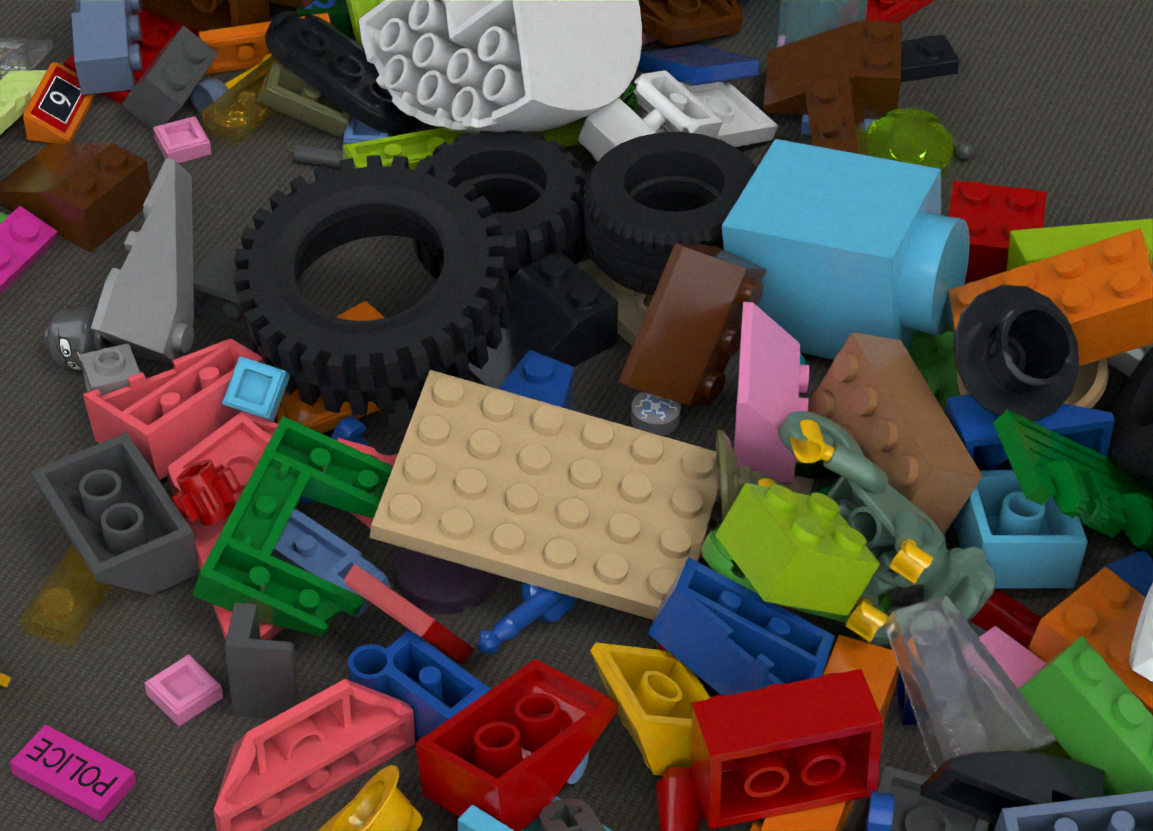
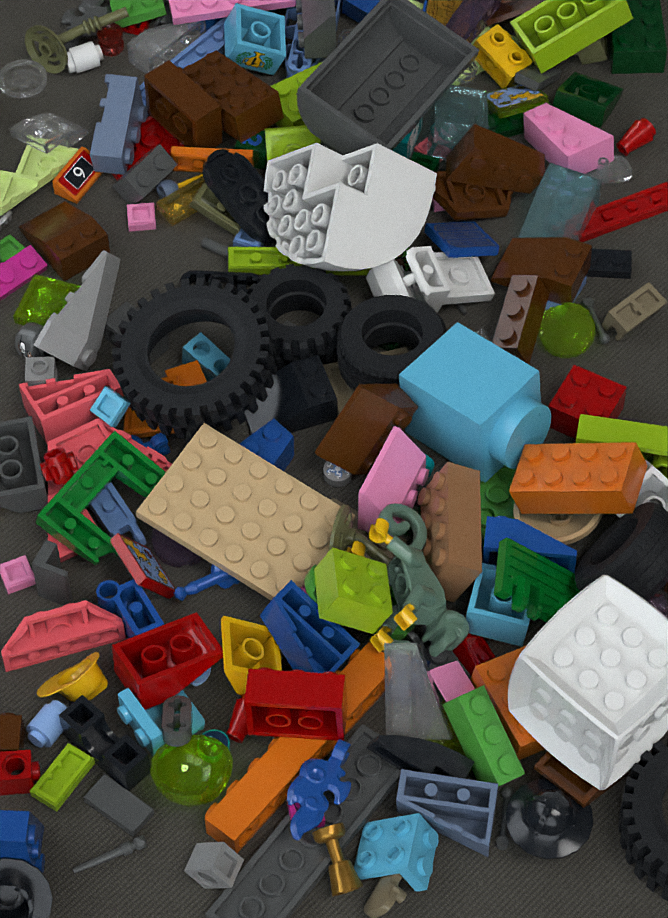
camera: 20 degrees right, 10 degrees up
(72, 277) = (42, 299): none -> clear neon green plate
(379, 290) = (209, 356): none -> medium azure leg
(994, 102) = (634, 310): none -> dark tan hinge
(1016, 352) = (529, 503): black helmet -> none

